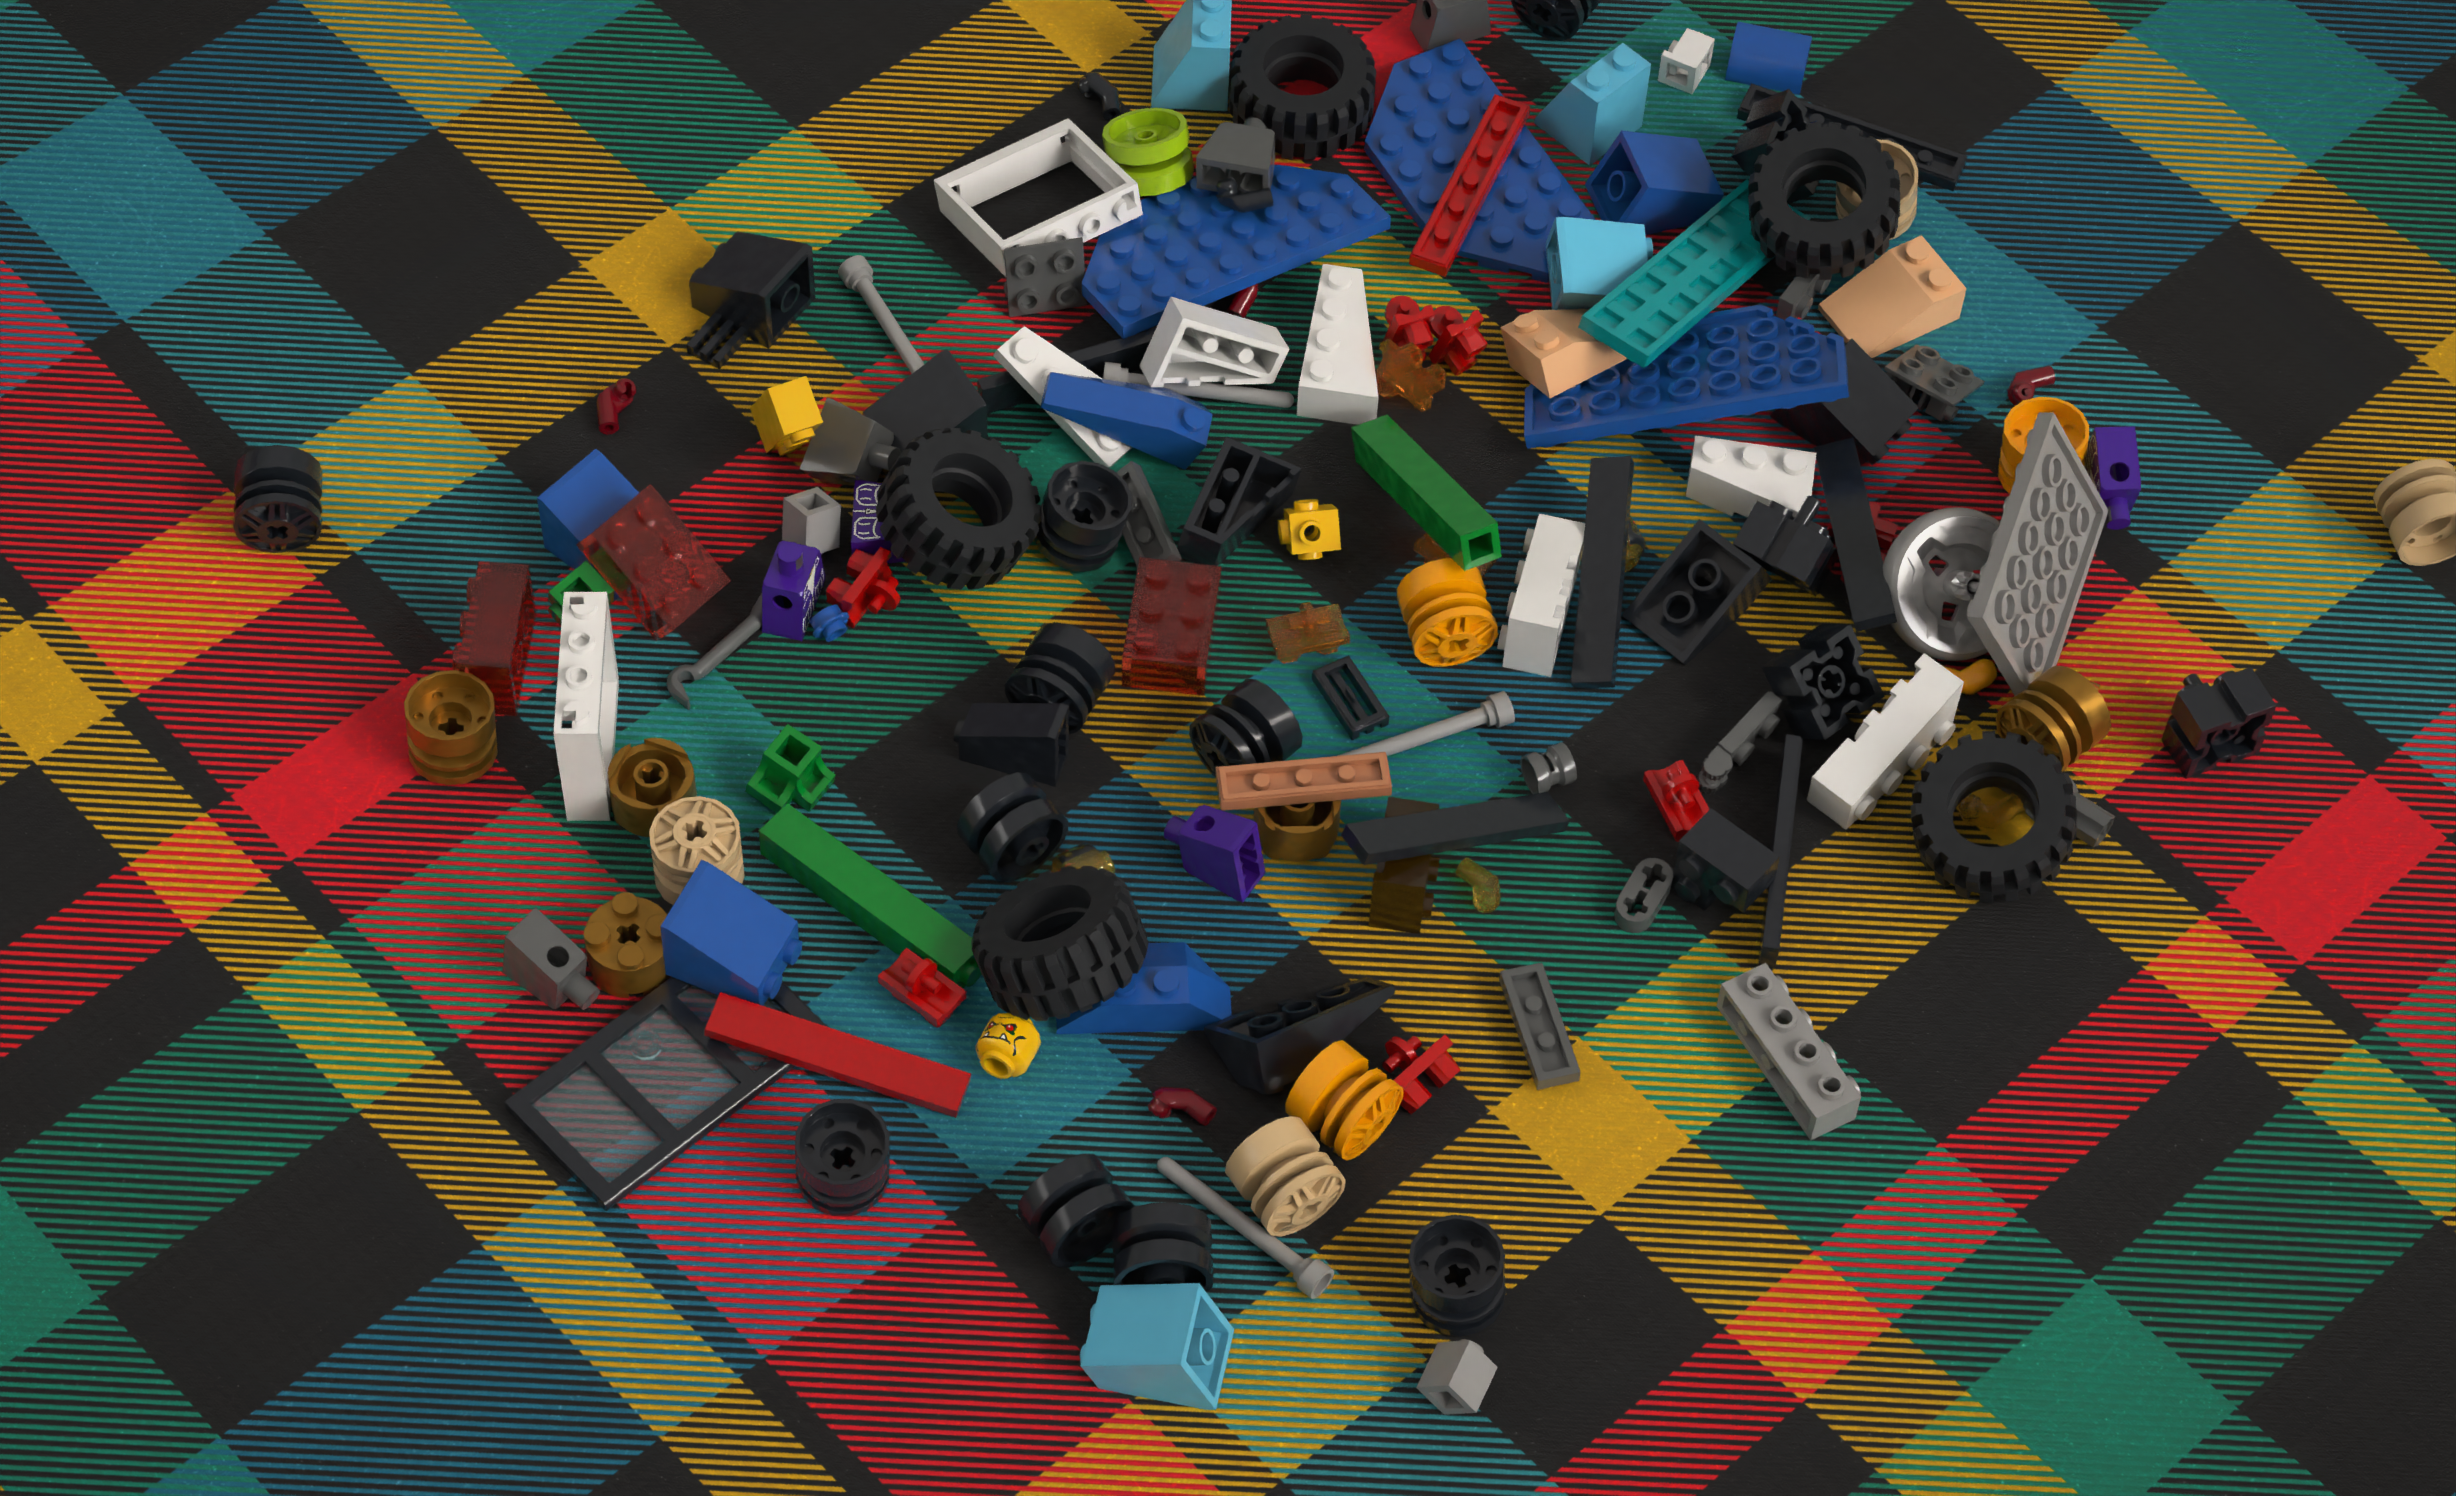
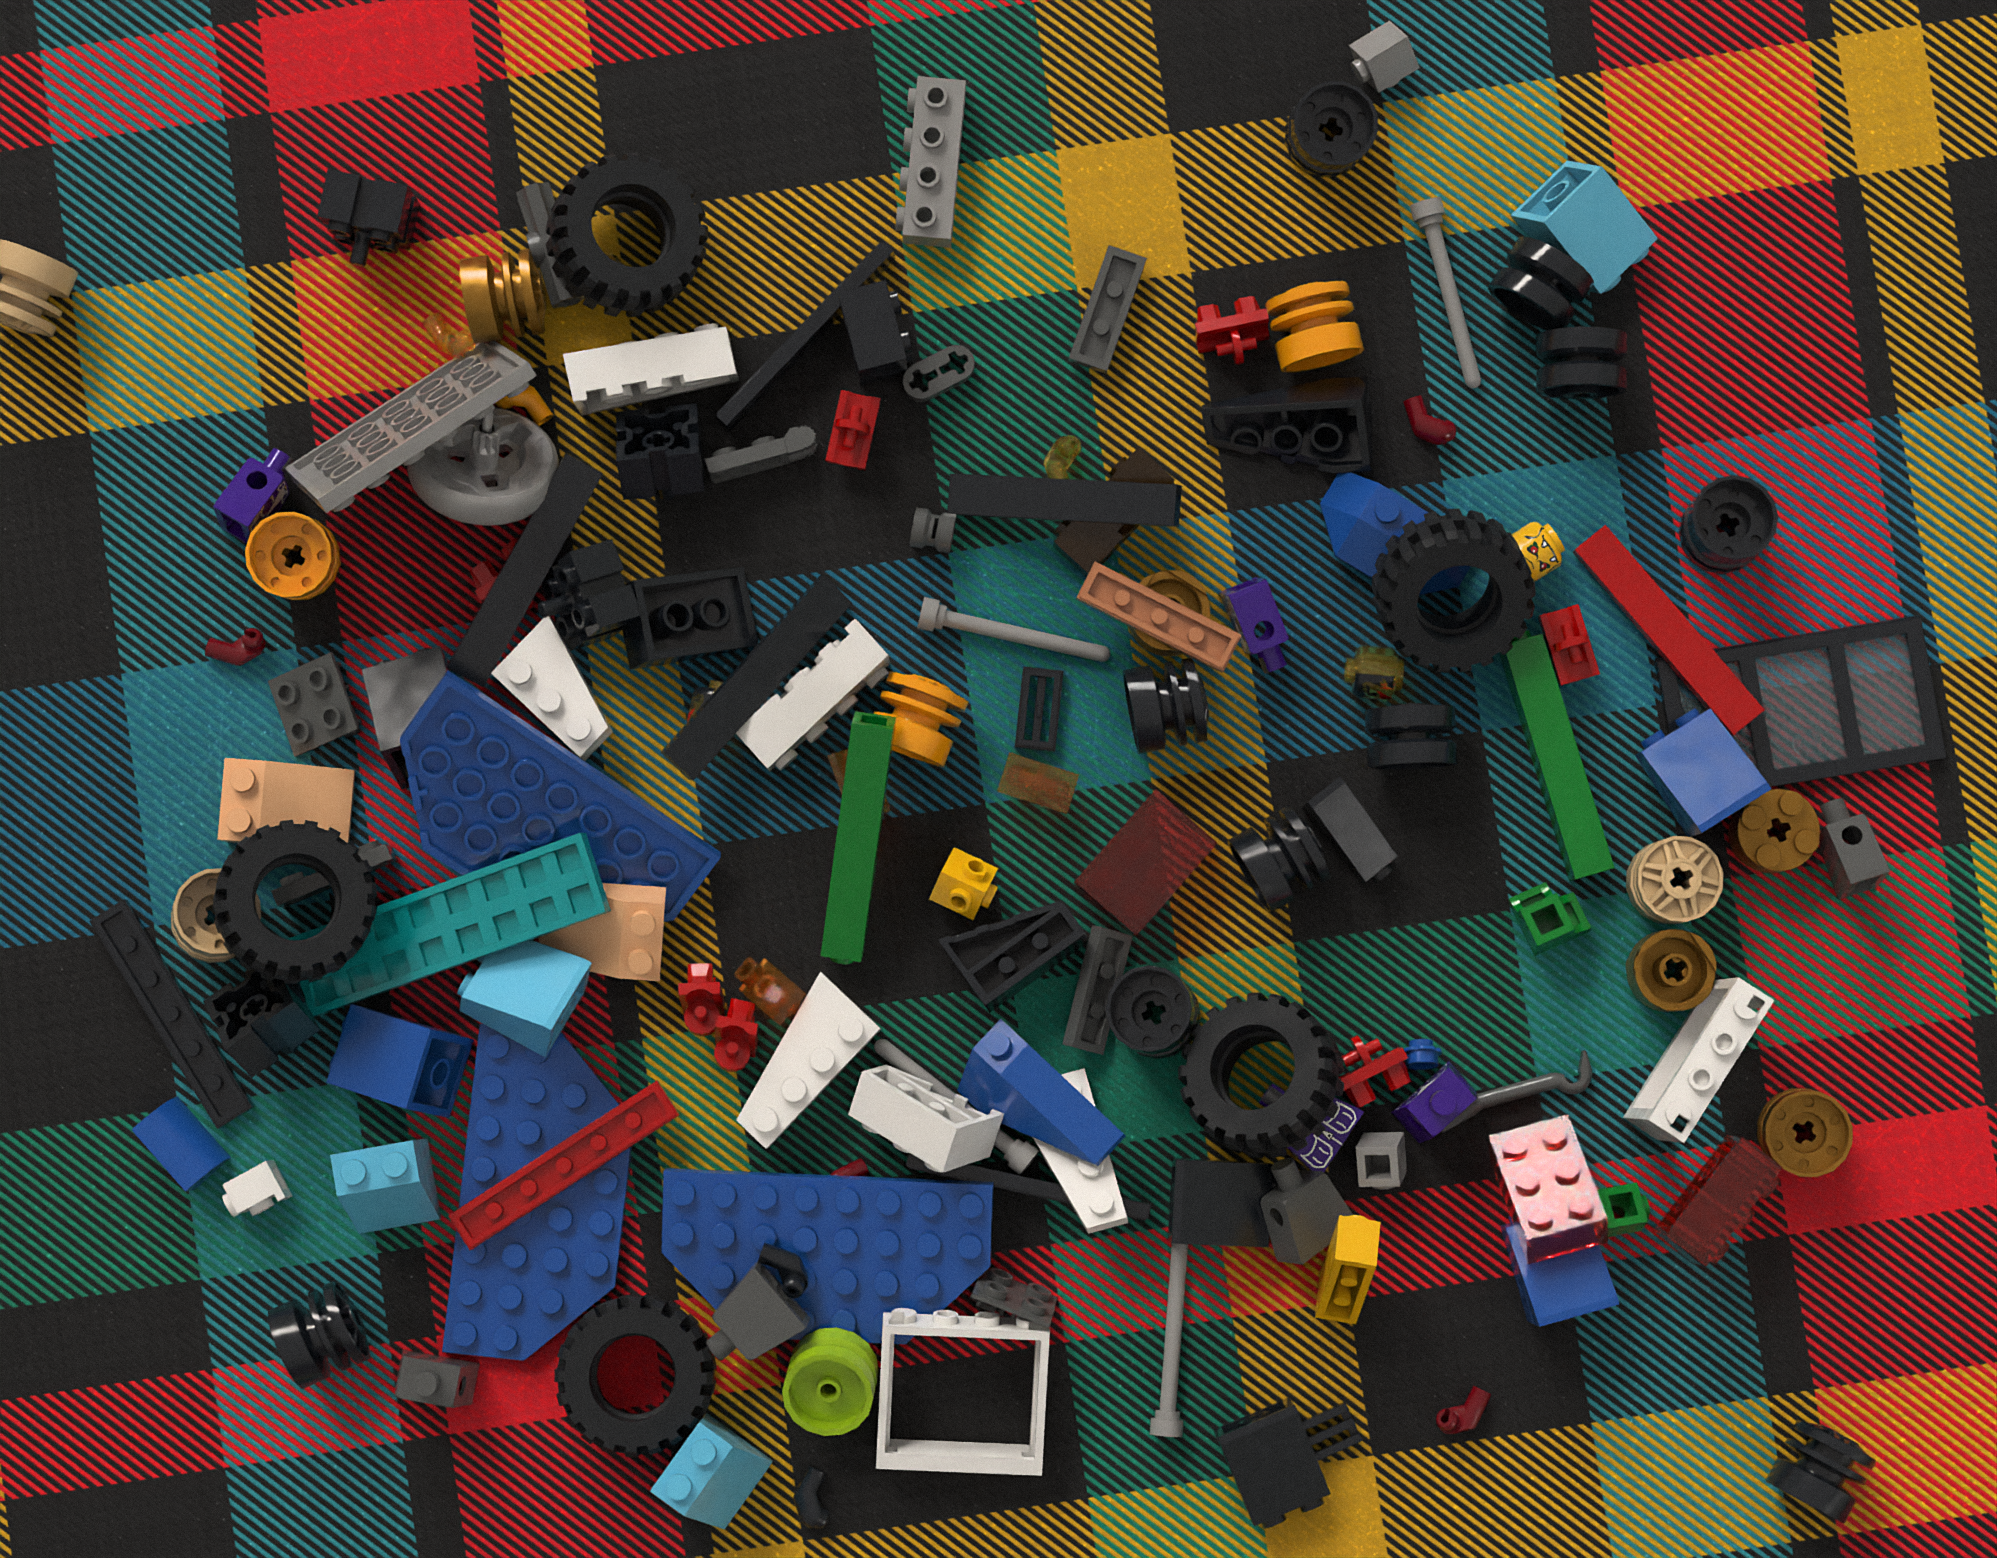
camera: 145 degrees left, 30 degrees up
(1285, 1176) = (1404, 281): tan wheel -> none

